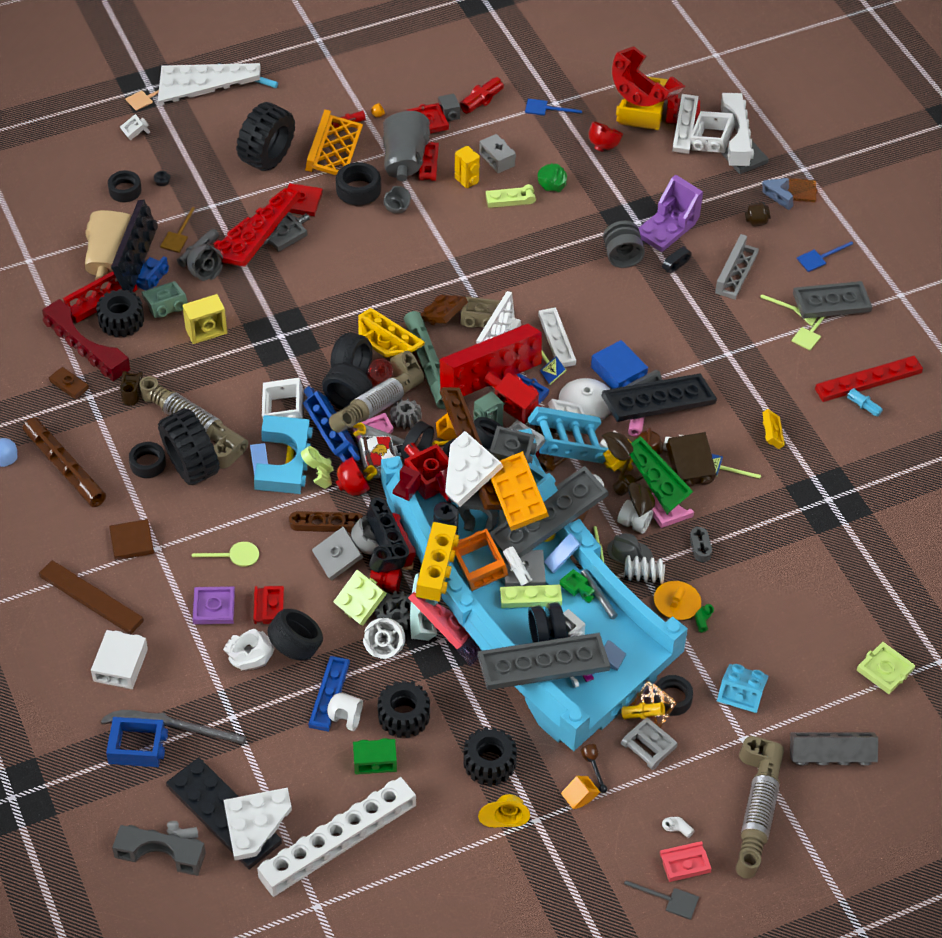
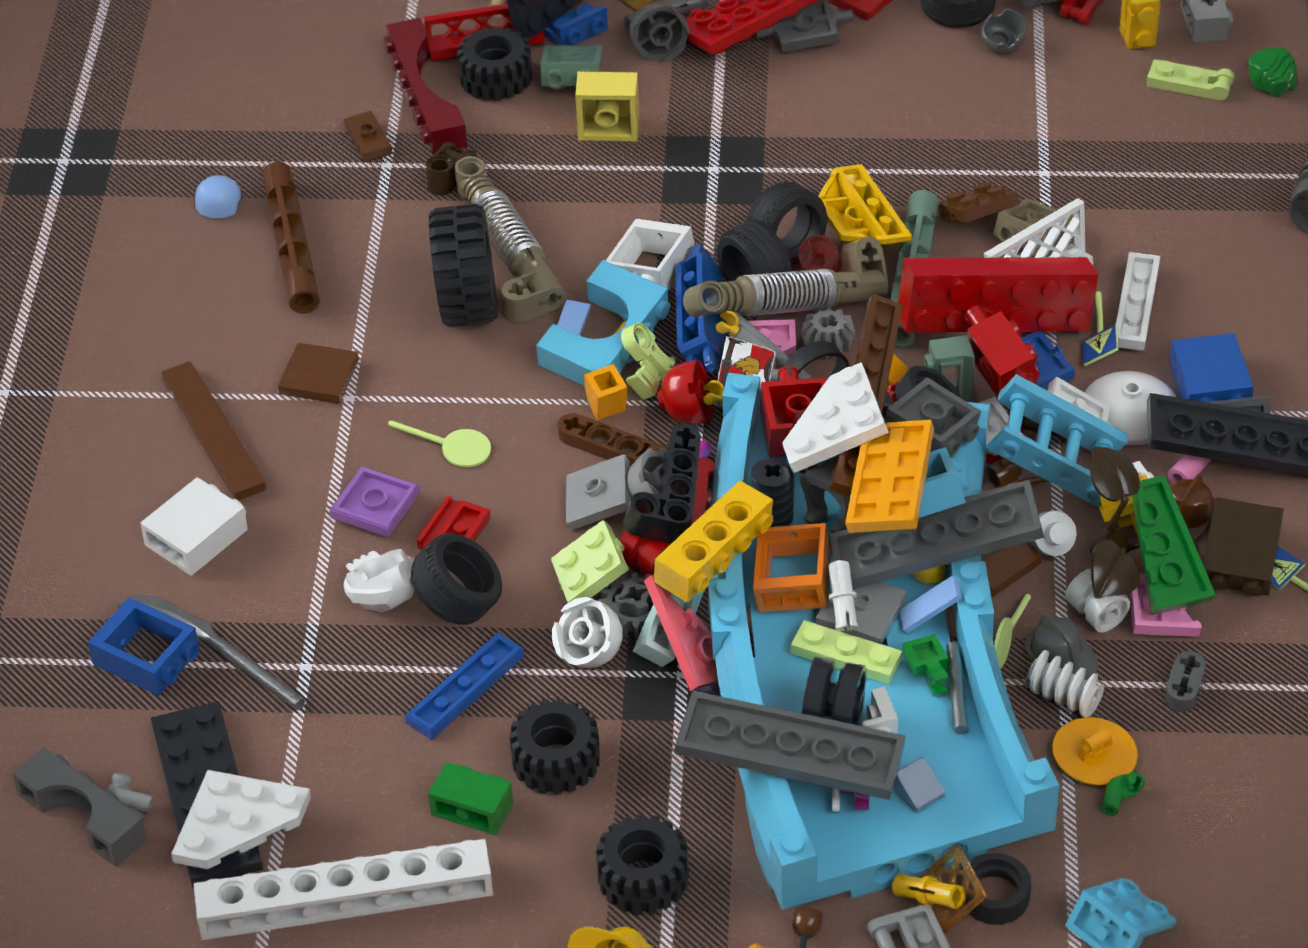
camera: 30 degrees right, 5 degrees down
(147, 471) = (407, 288): black tyre -> none
(306, 492) = (605, 392): none -> light orange brick
(345, 707) = (474, 715): white helmet -> none
(409, 483) = (746, 419): dark red panel -> none

